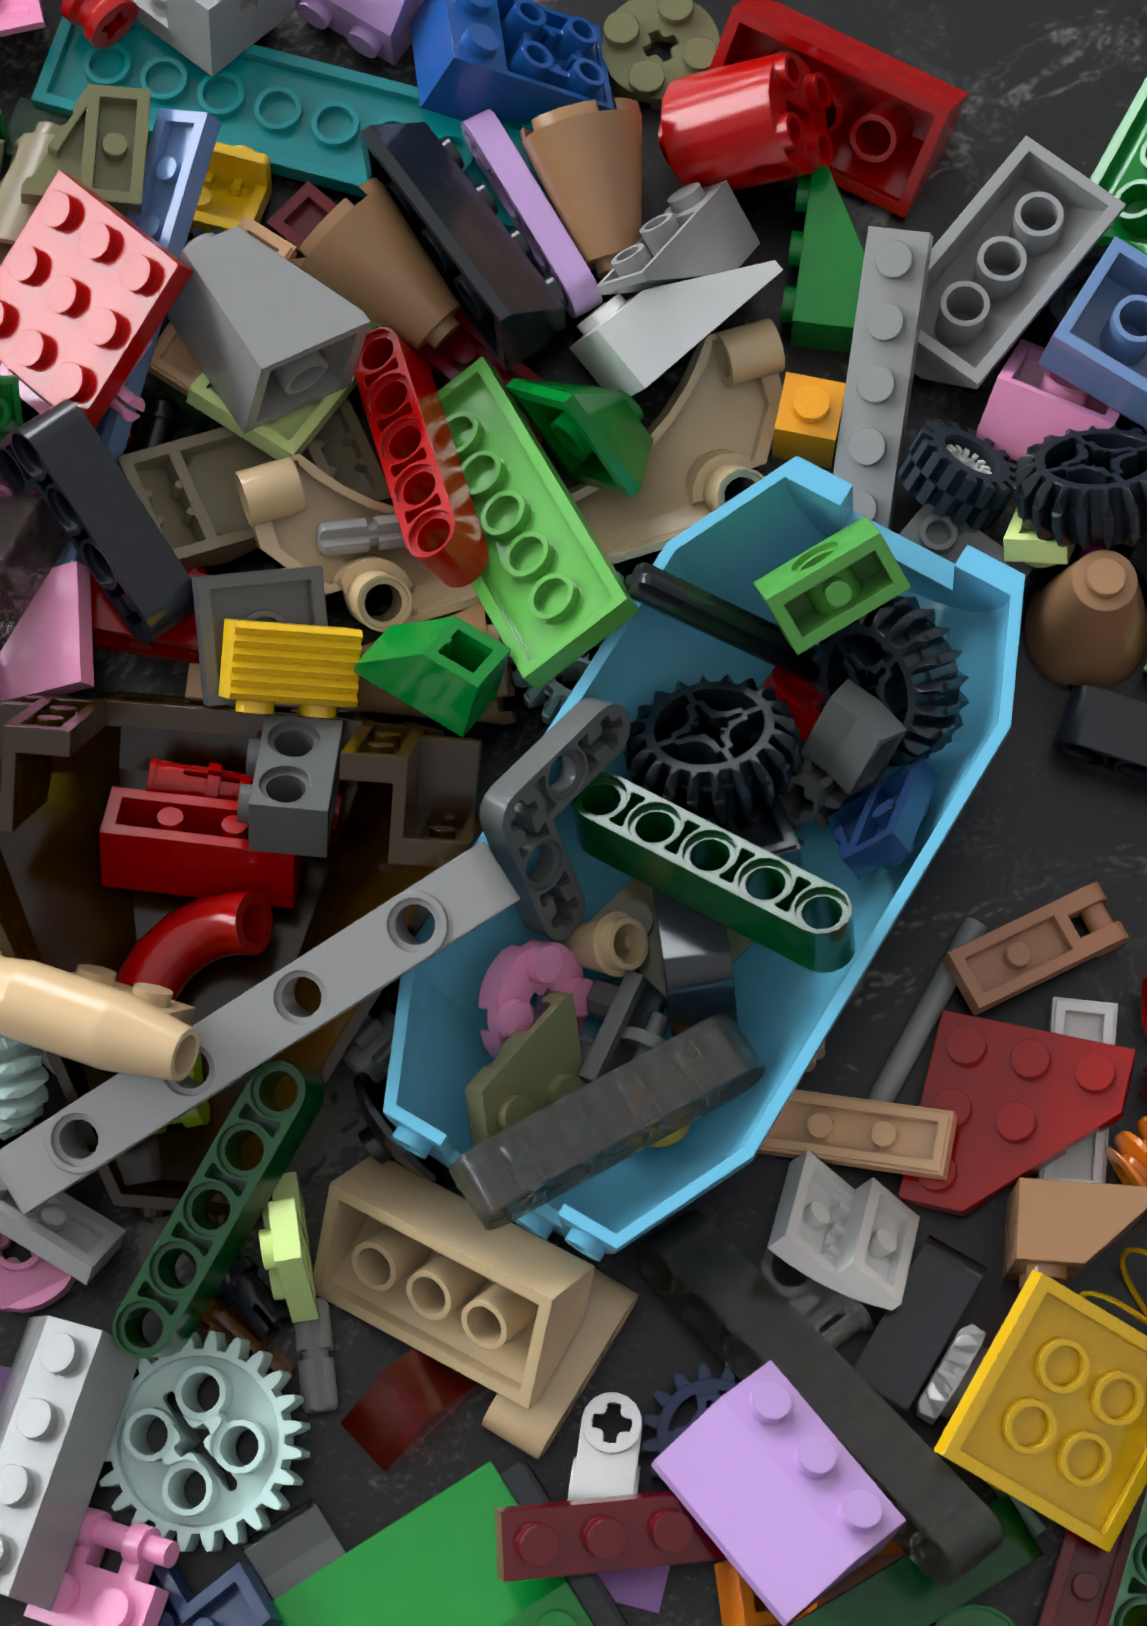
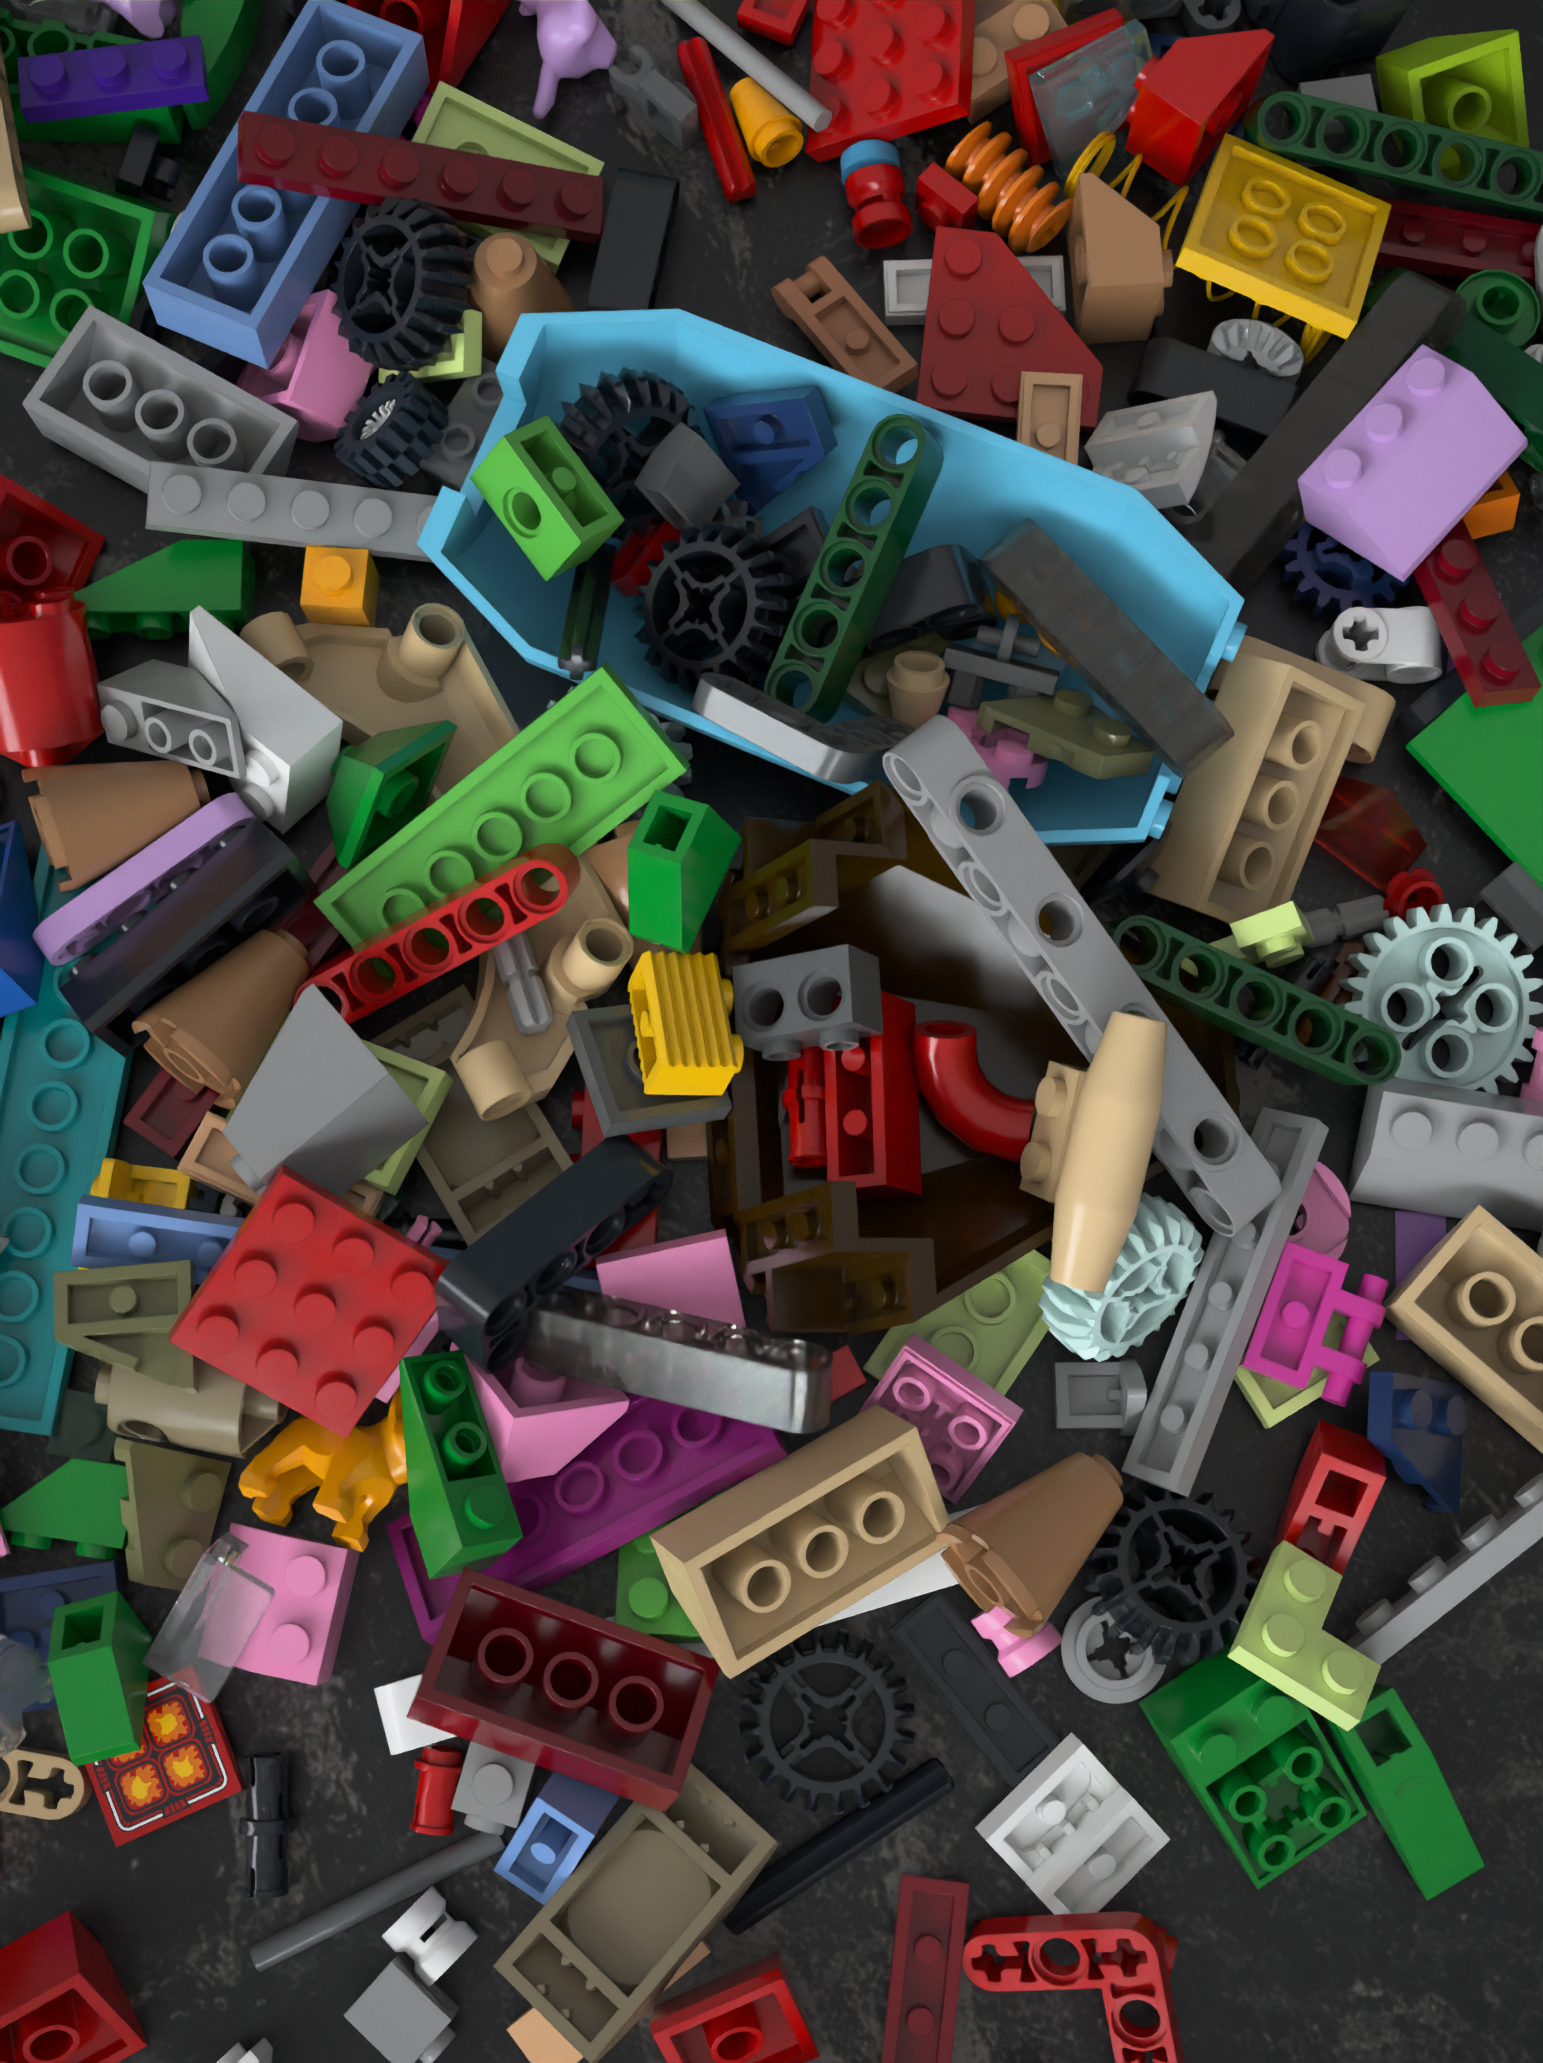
camera: 100 degrees left, 5 degrees up
(329, 1439) = (1421, 883): none -> red plate

